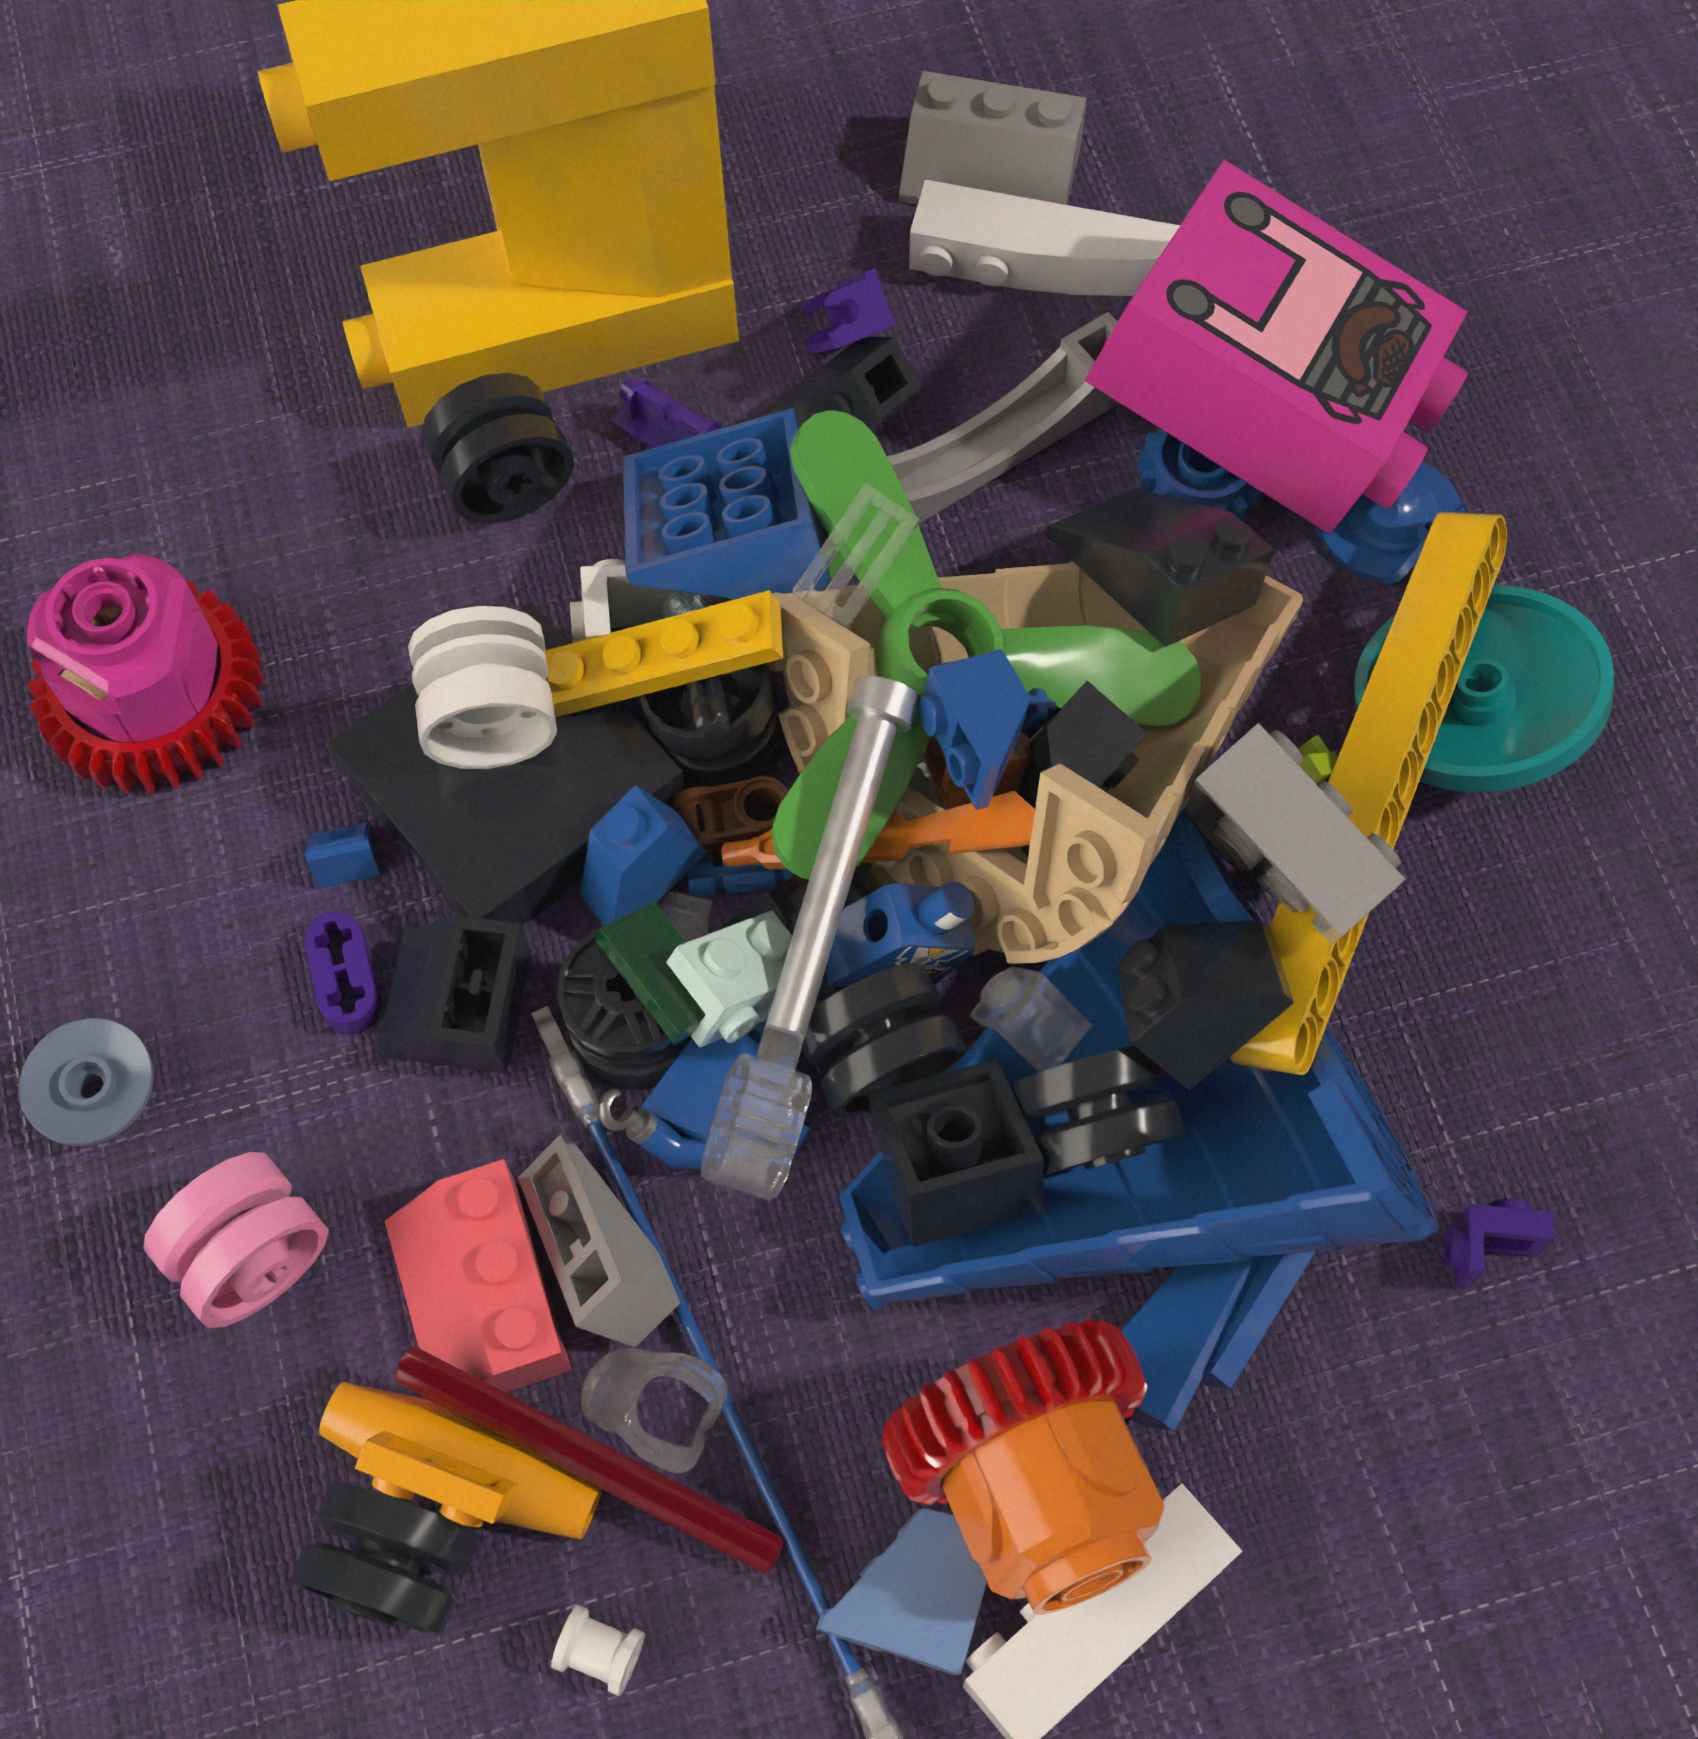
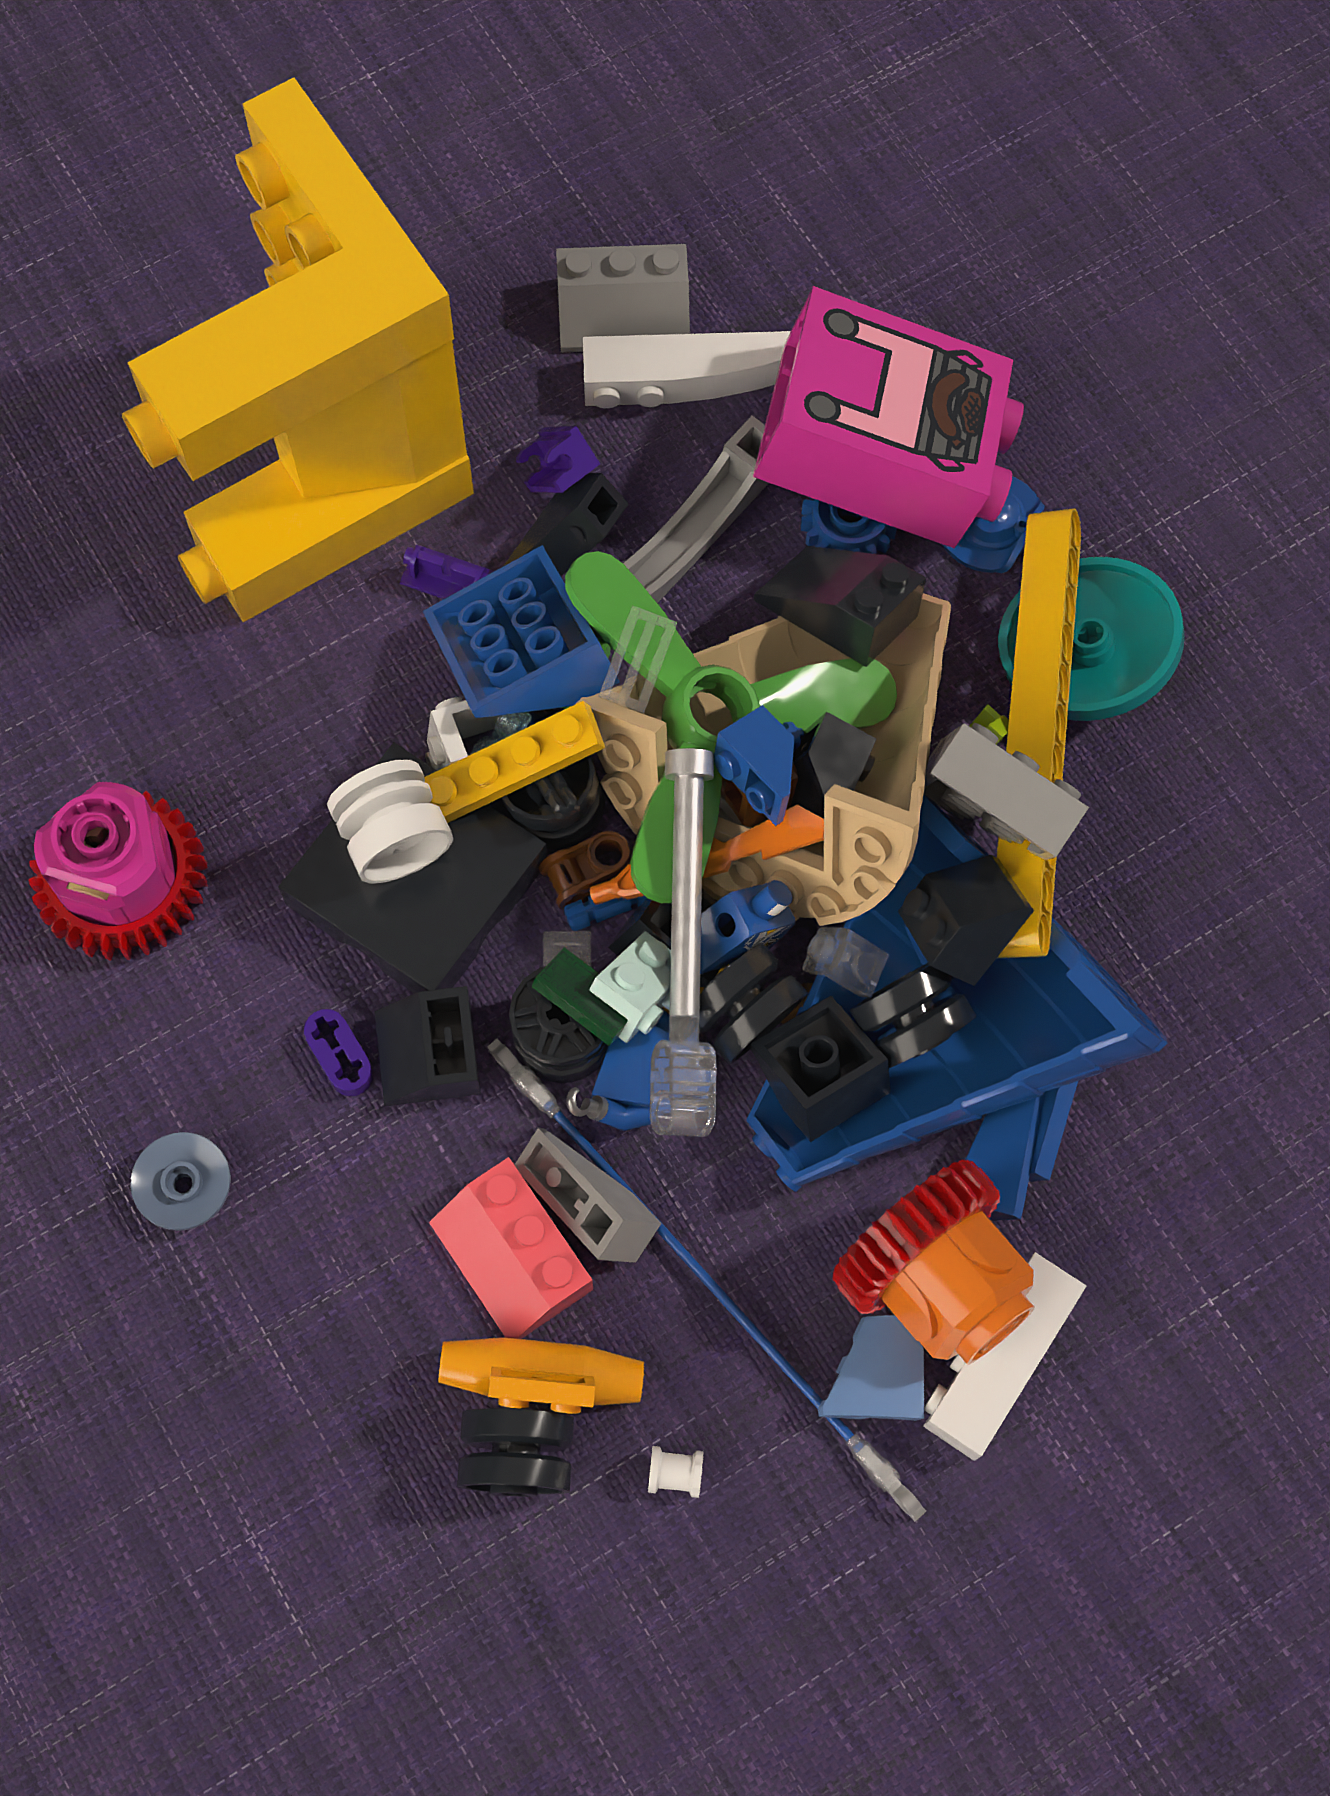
camera: 20 degrees left, 5 degrees up
(235, 1239) = (335, 1264): bright pink wheel -> none
(342, 855) = (308, 964): blue slope -> none
(497, 448) = (327, 628): black wheel -> none
(589, 1459) = (630, 1346): dark red axle -> none
(613, 1393) = (633, 1296): clear piece -> none
(636, 856) = (530, 917): blue slope -> none
(1501, 1227) = (1197, 1021): dark purple bracket -> none

